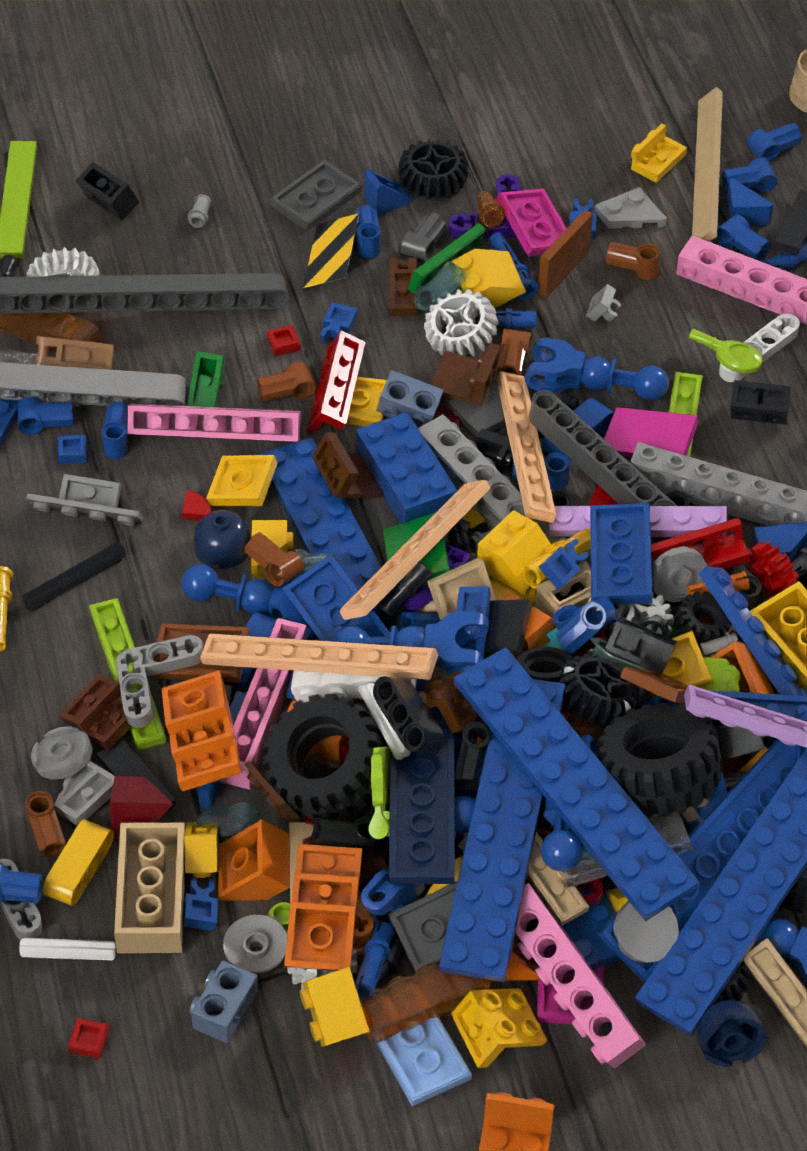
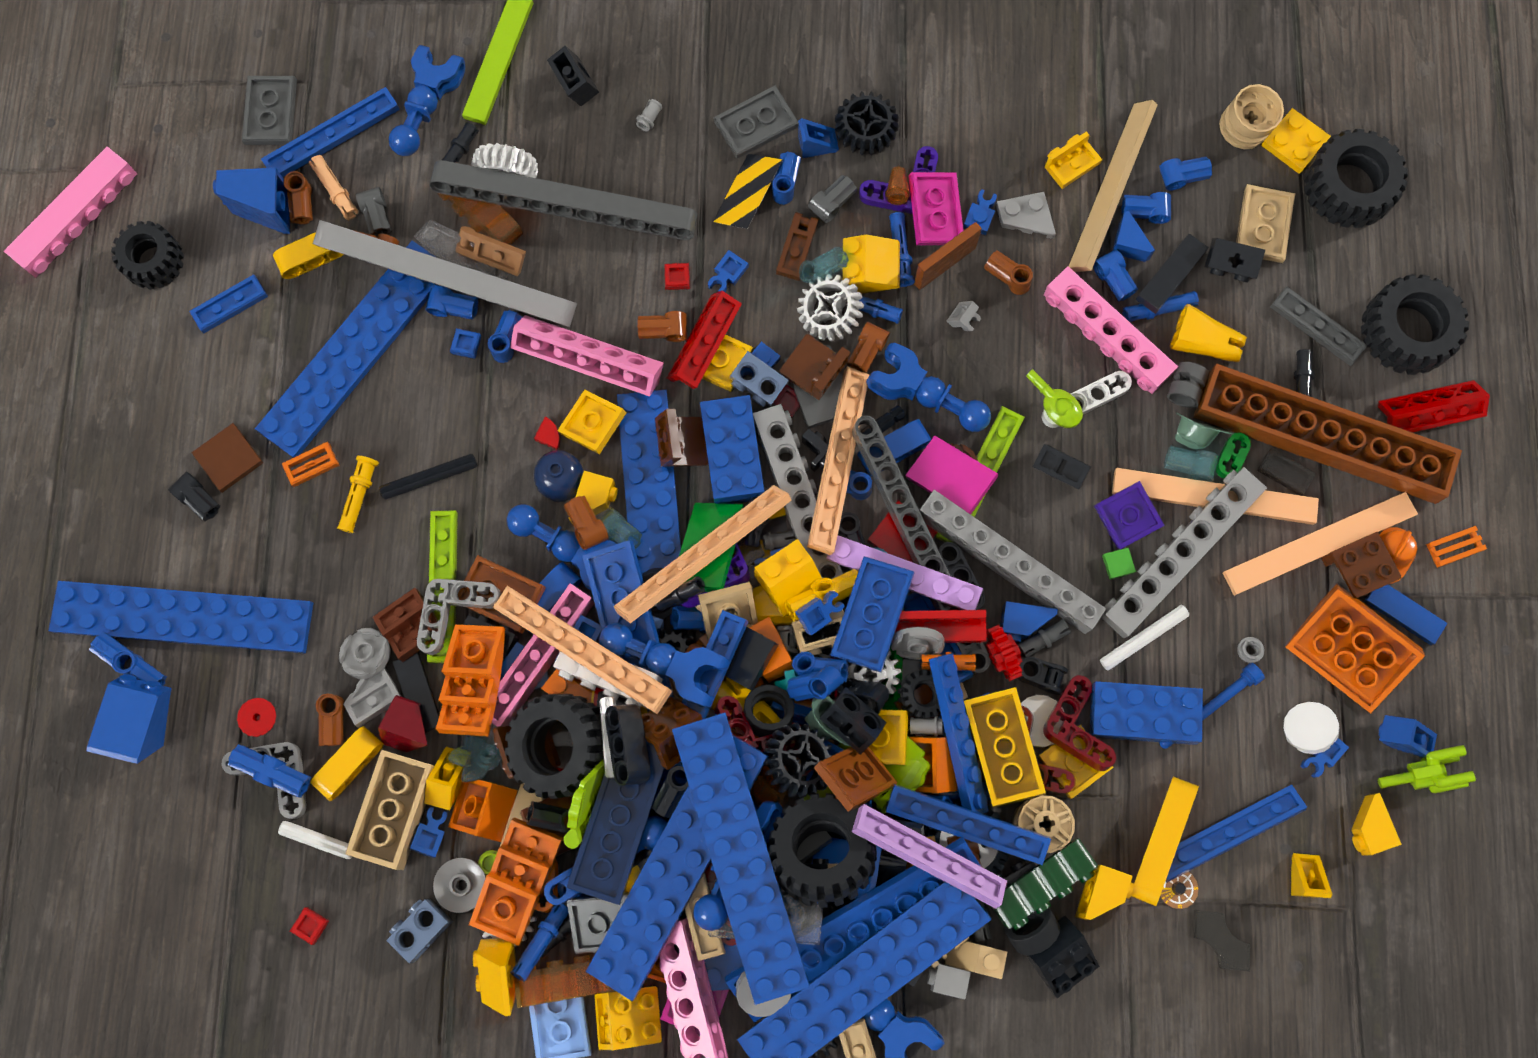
camera: 20 degrees right, 25 degrees up
(89, 497) = (461, 403): light grey bracket -> none
(206, 379) = (593, 308): green slope -> none
(425, 273) = (842, 231): green tile -> none

